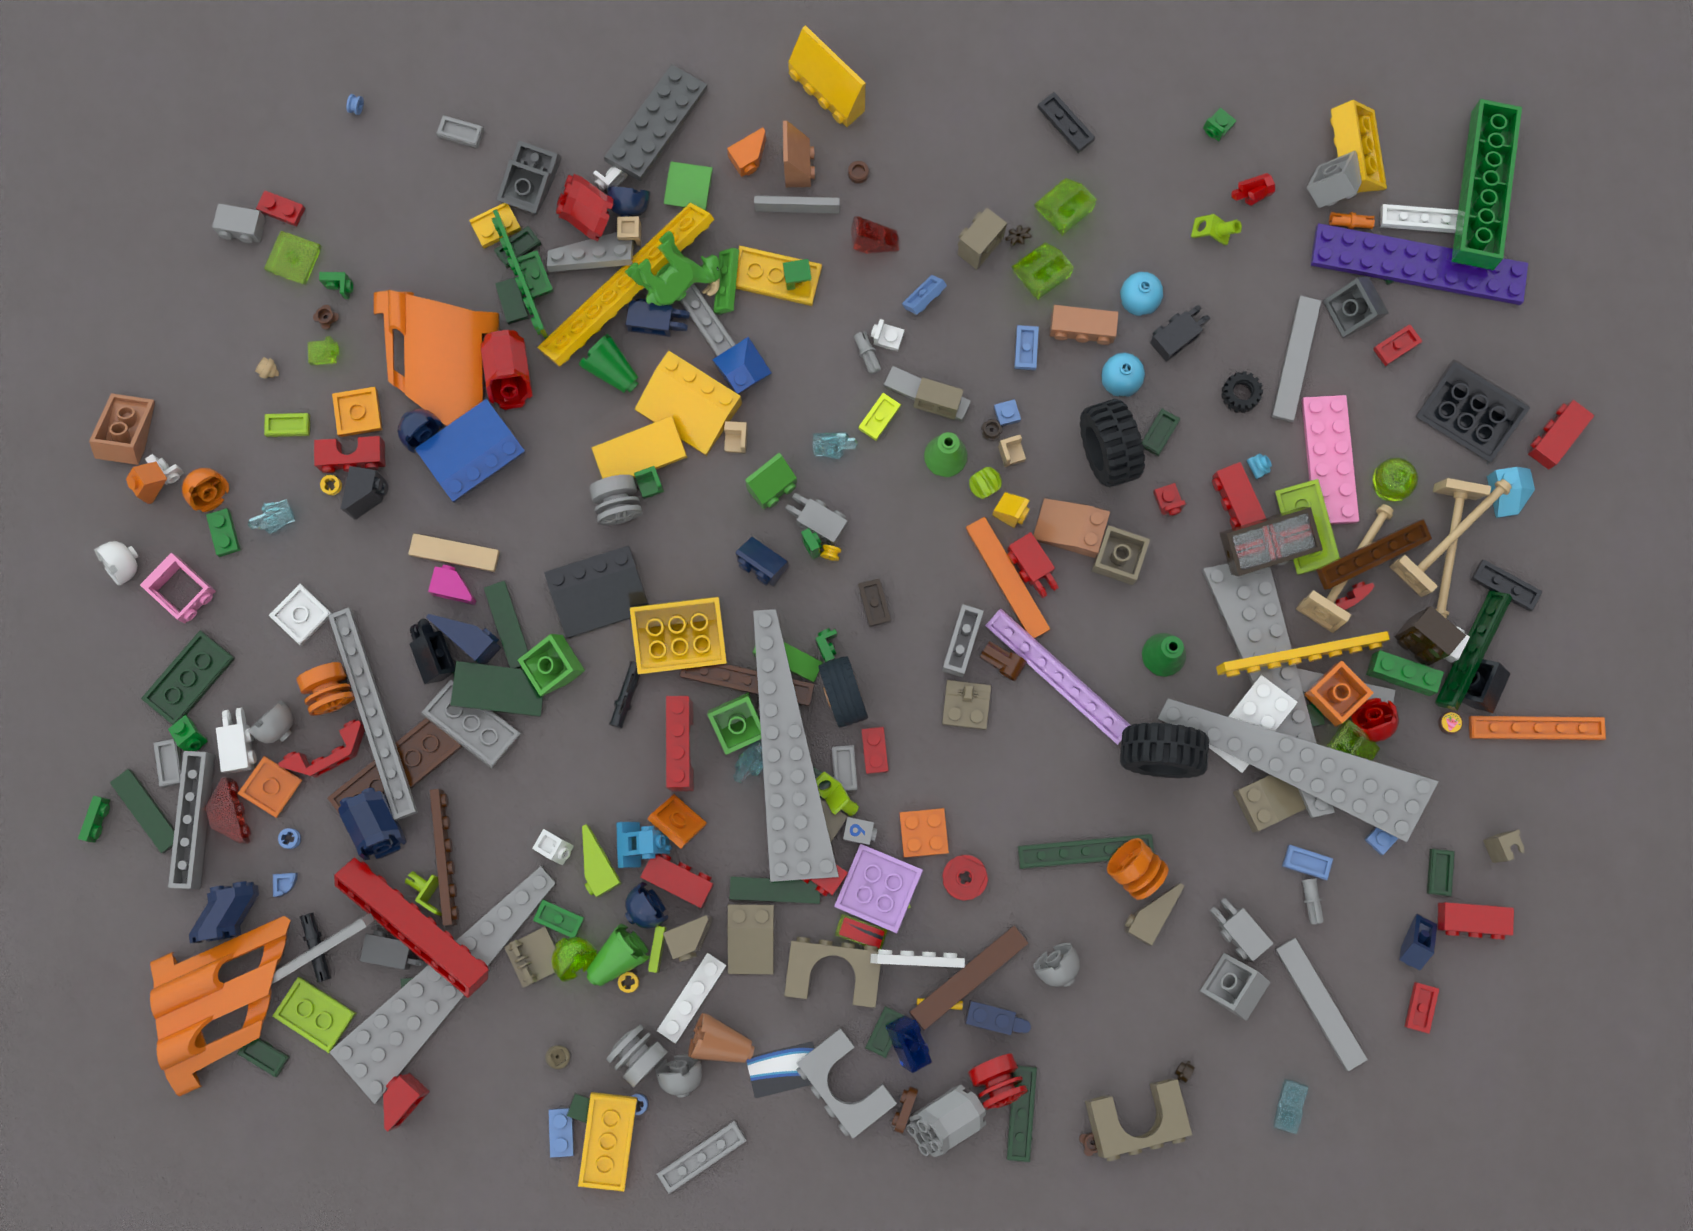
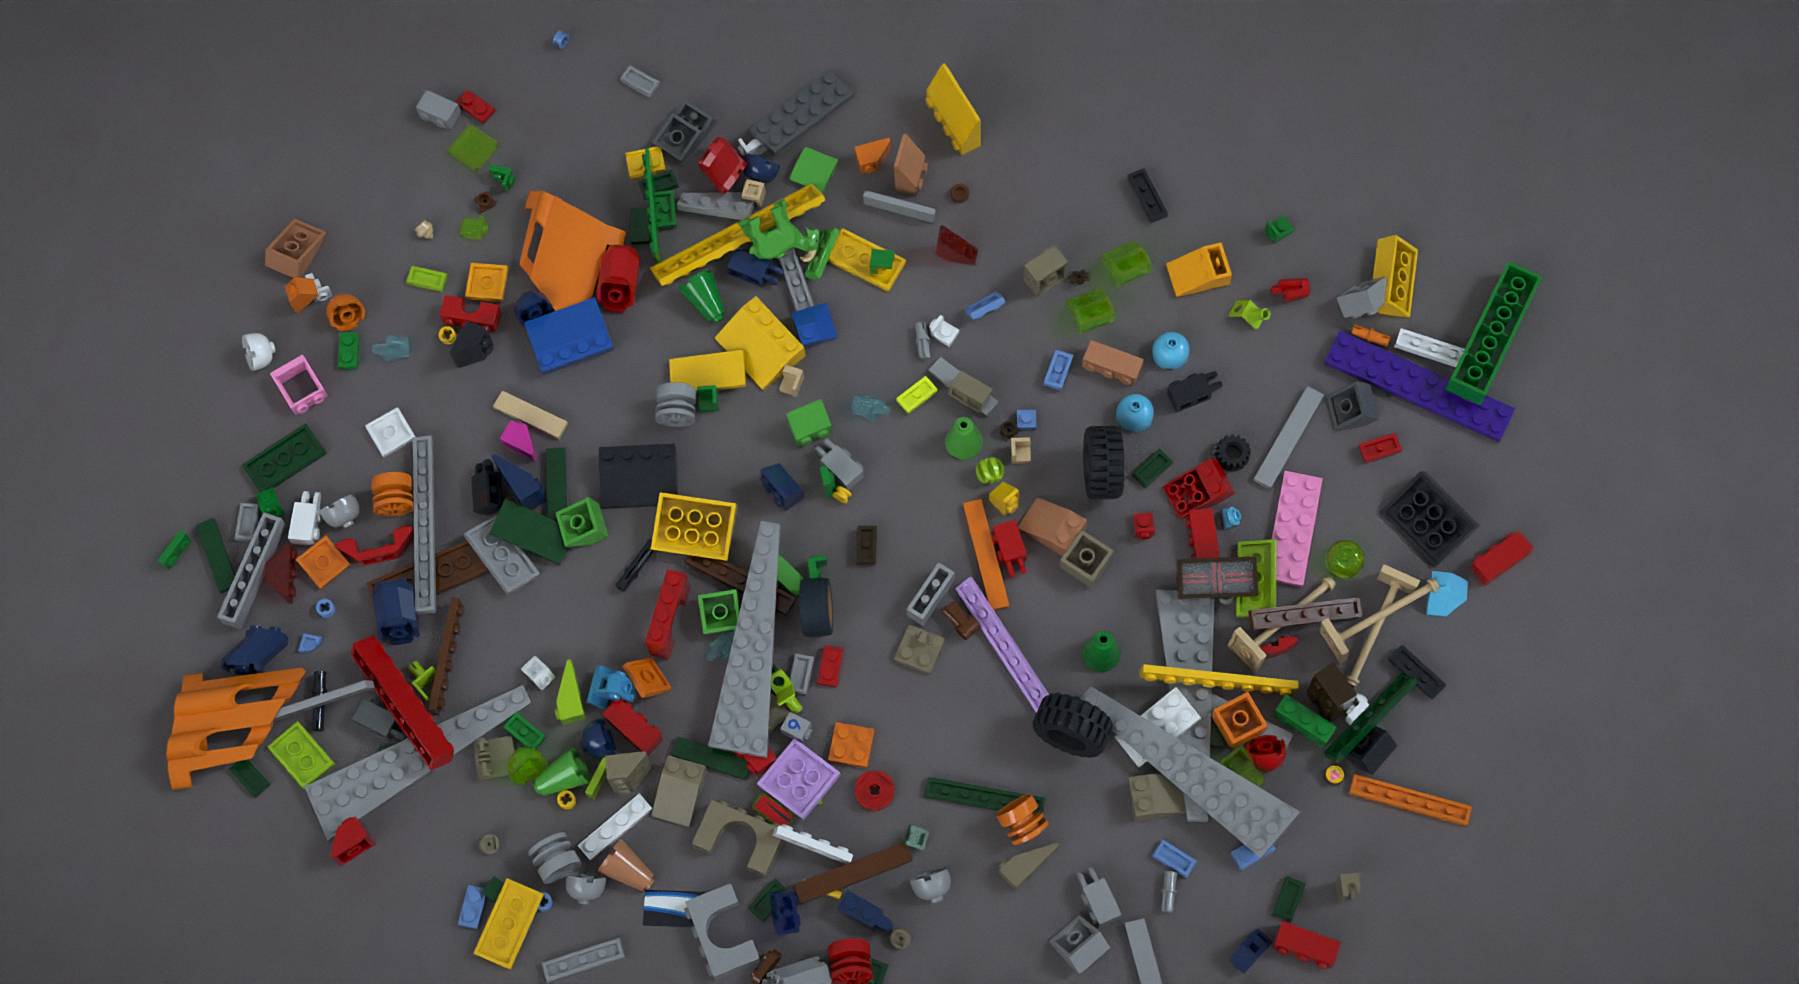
camera: 20 degrees right, 10 degrees down
(1026, 918) = (916, 837): none -> clear green plate
(1041, 1034) = (900, 938): none -> dark tan tile
(1149, 194) = (1200, 270): none -> light orange slope
(1216, 443) = (1199, 488): none -> red slope

